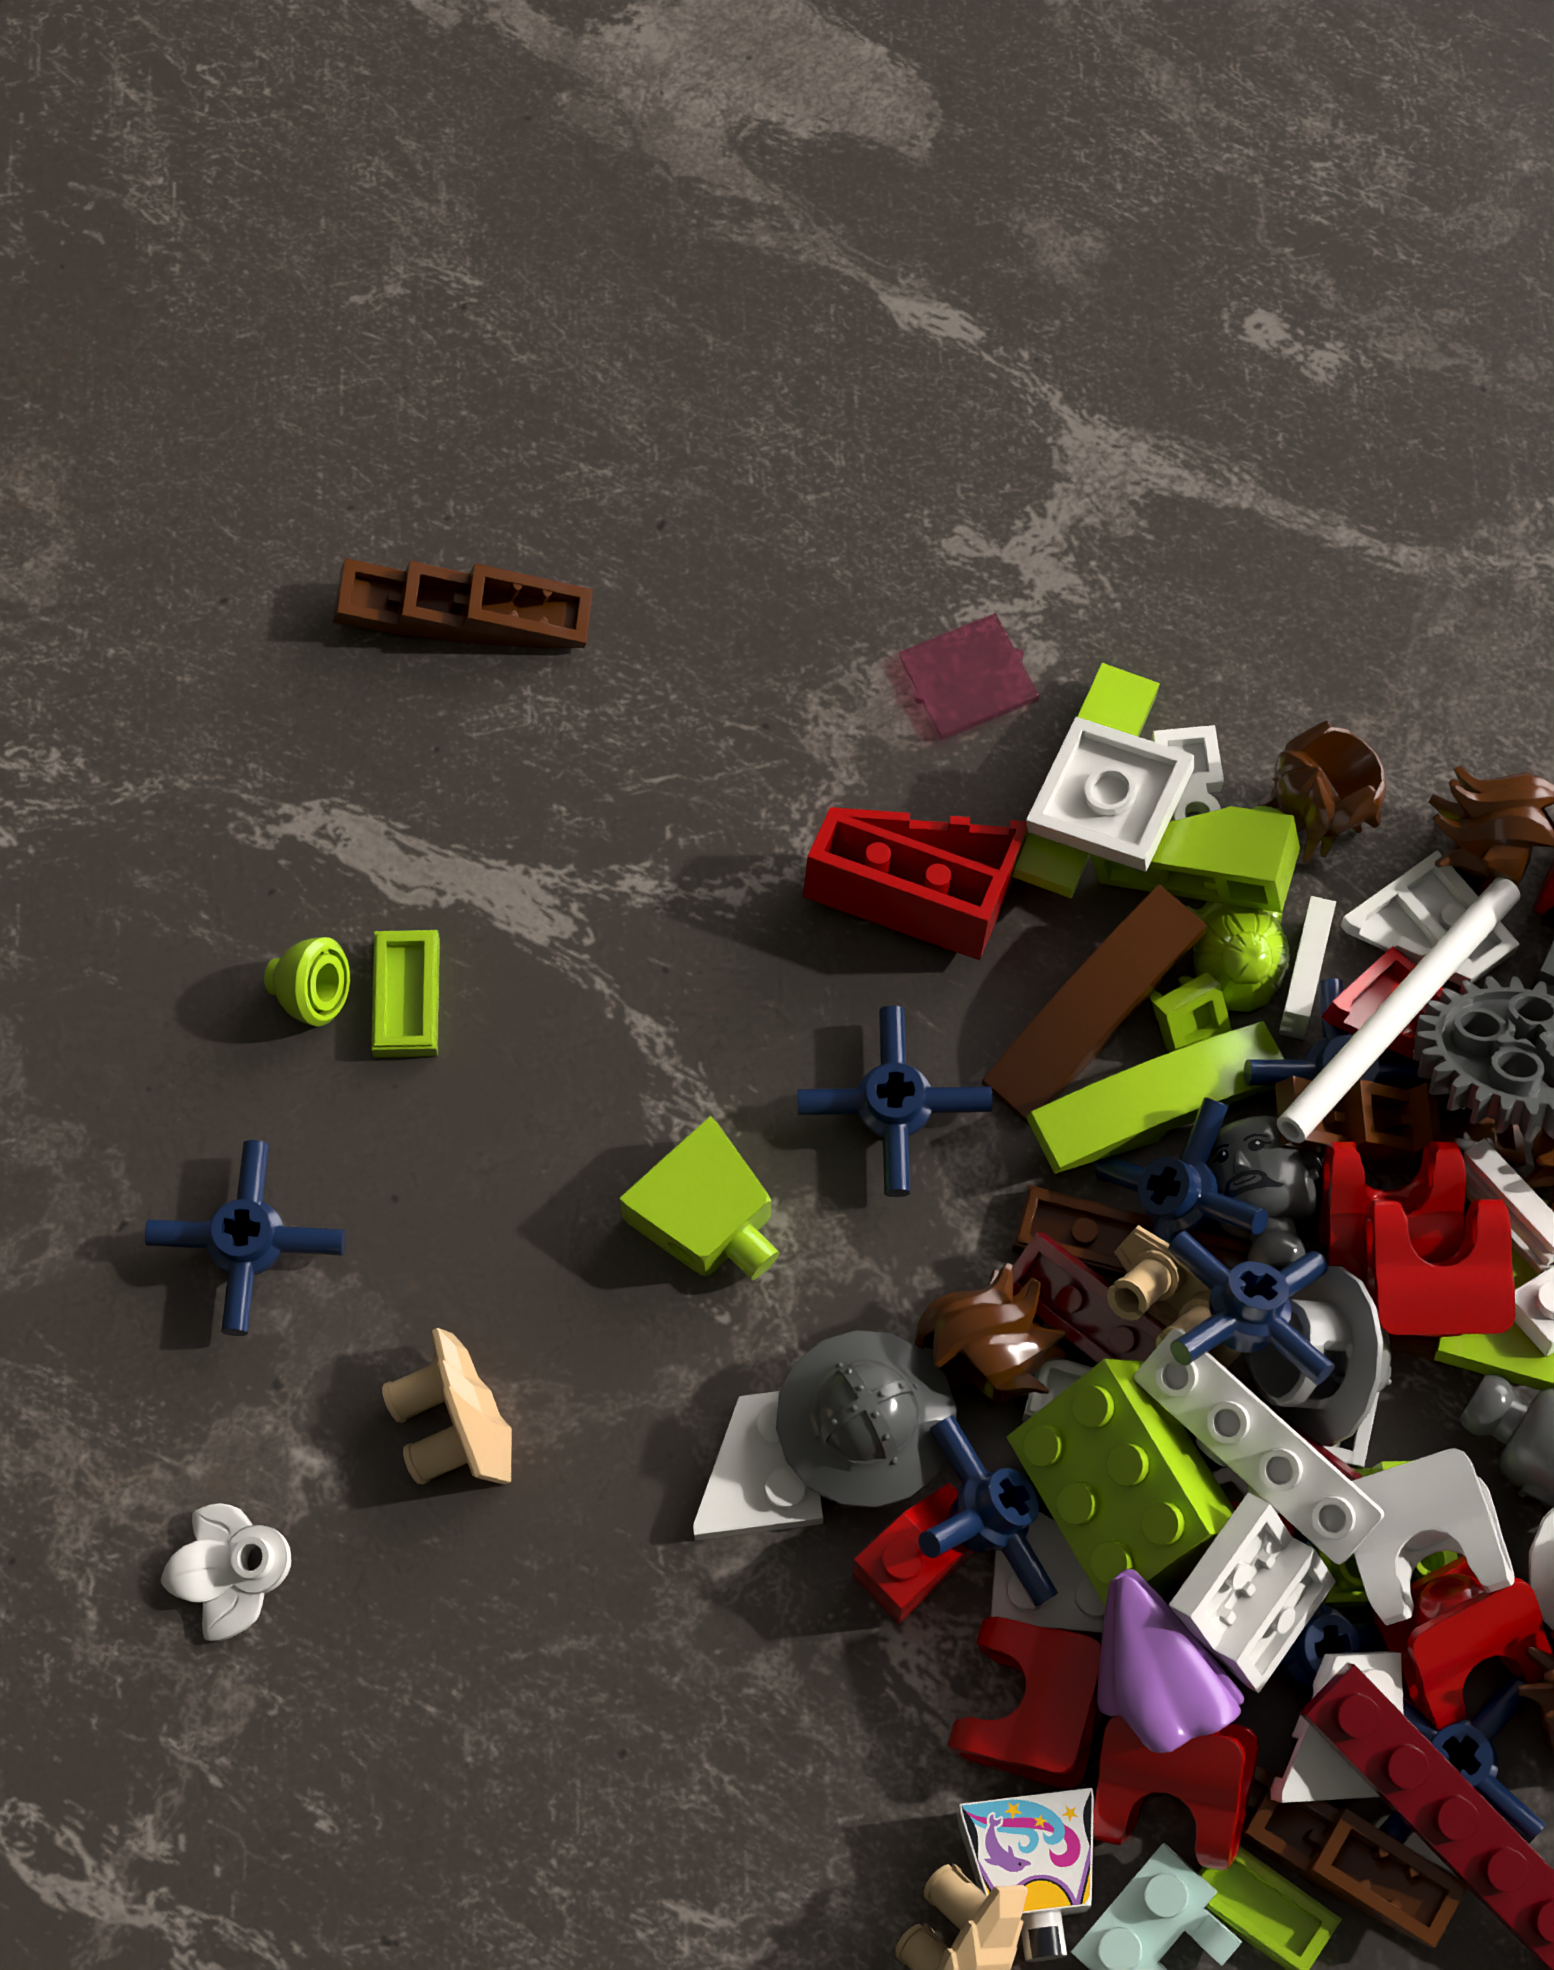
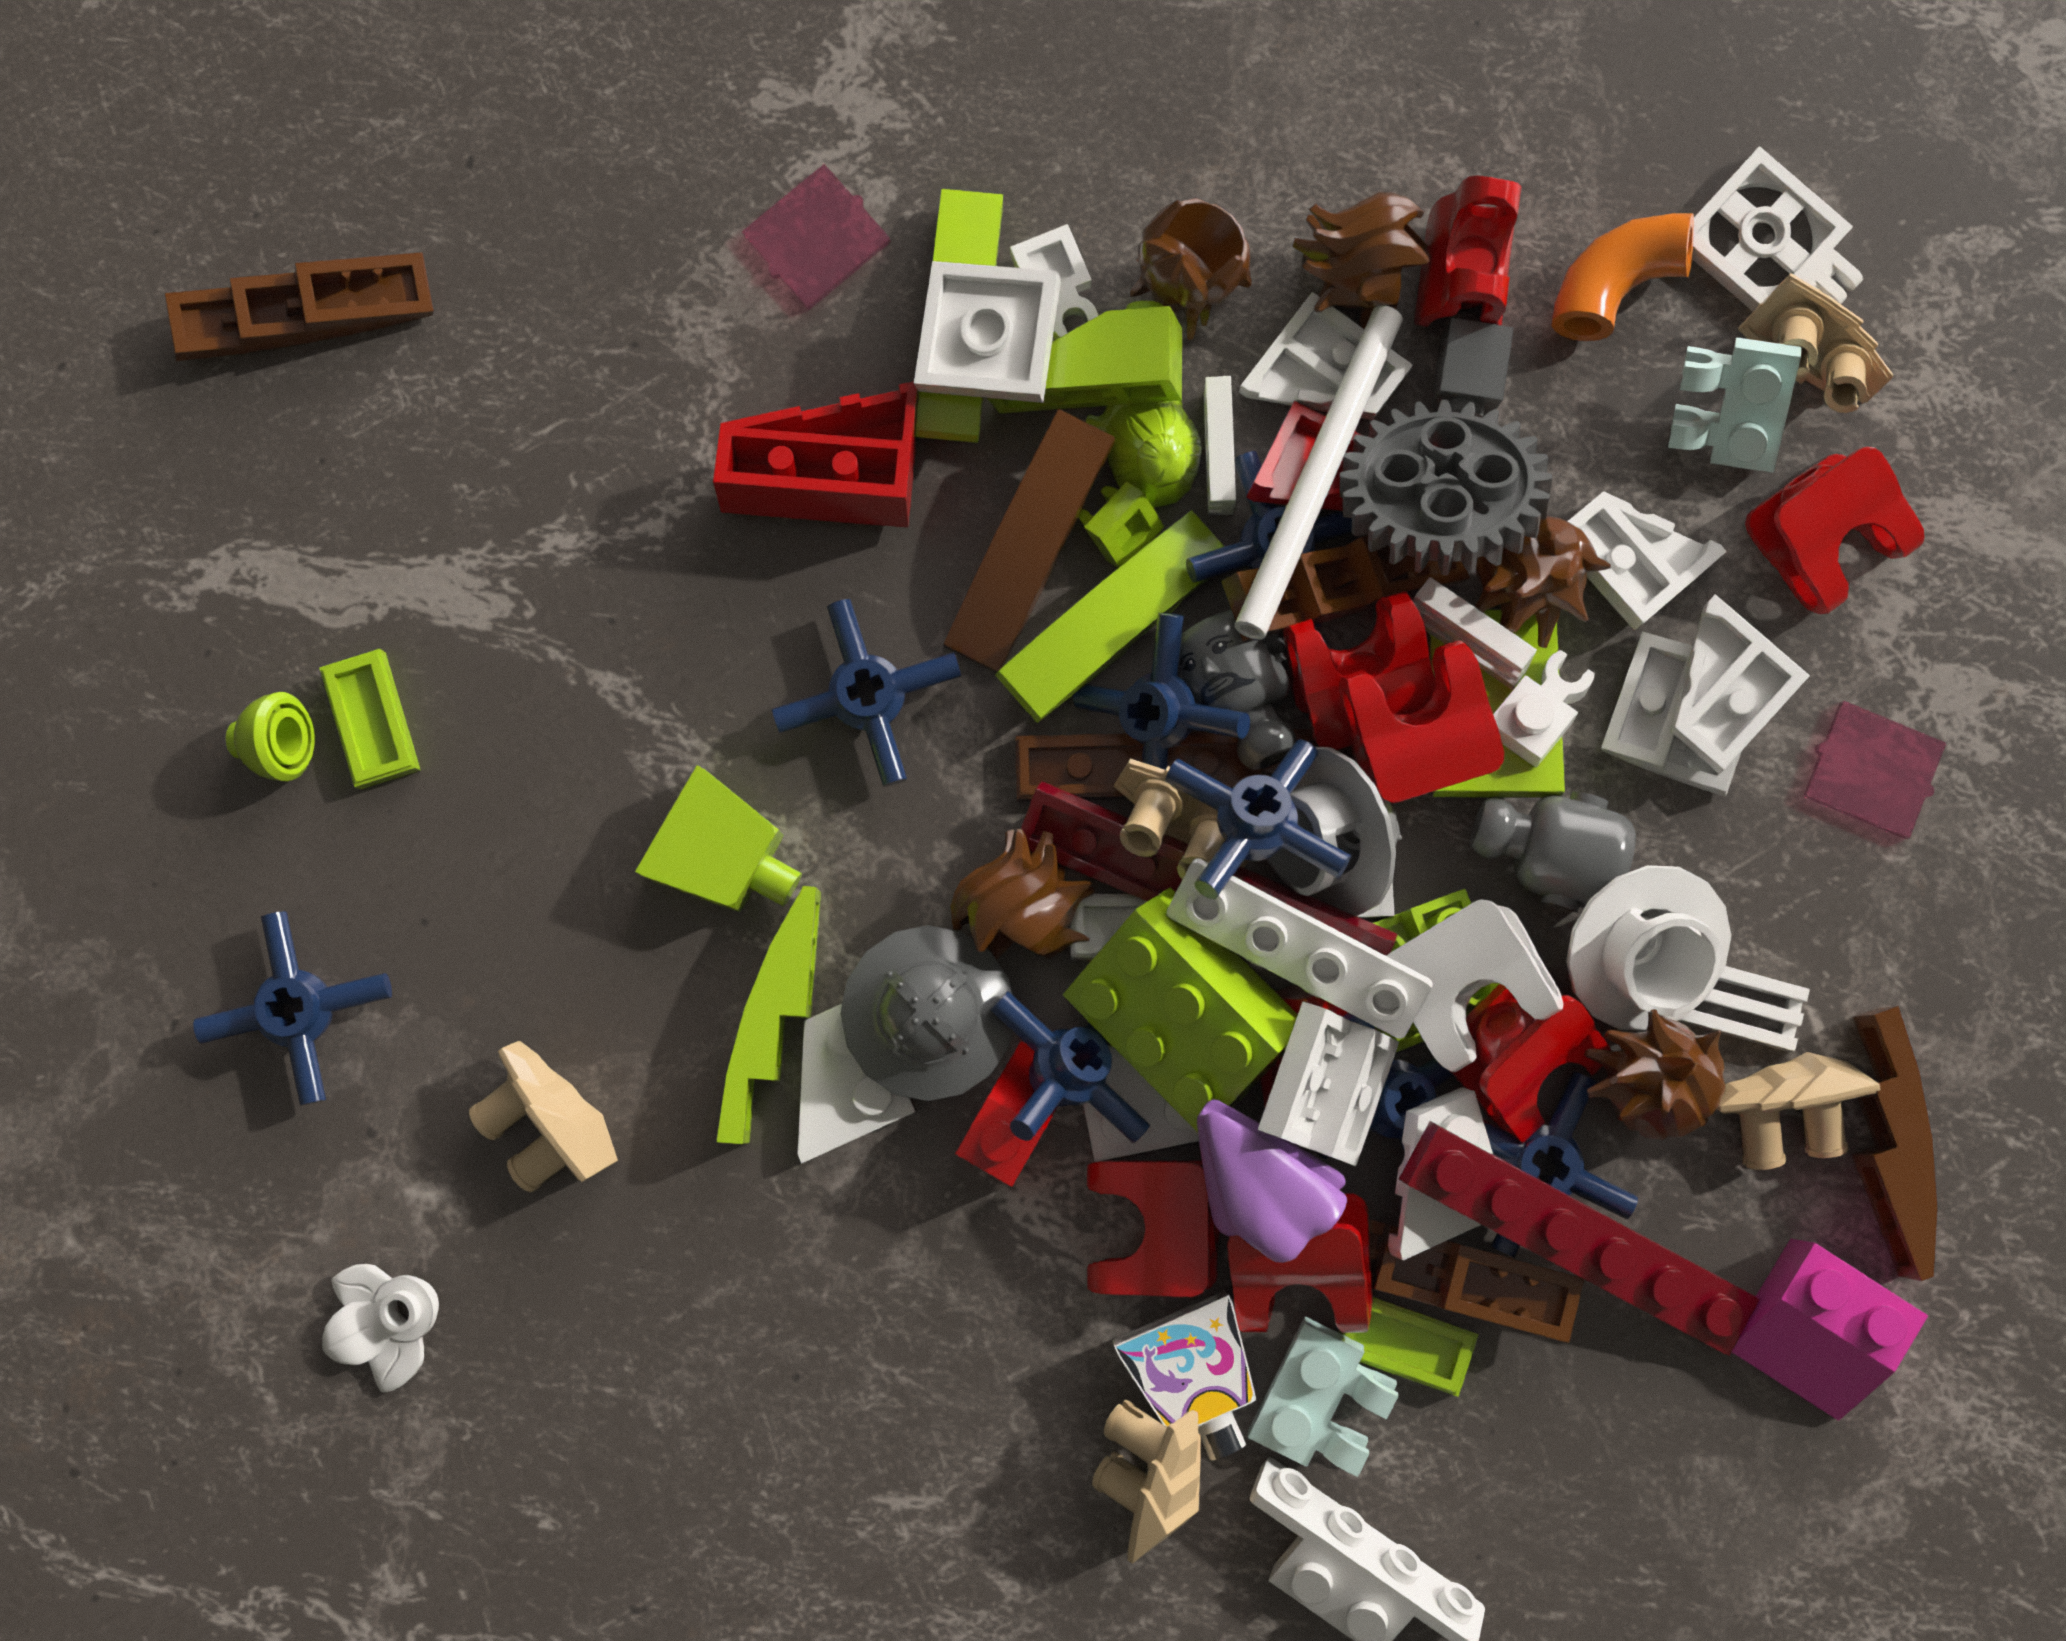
camera: 20 degrees left, 15 degrees up
(719, 1364) = (779, 992): none -> lime slope

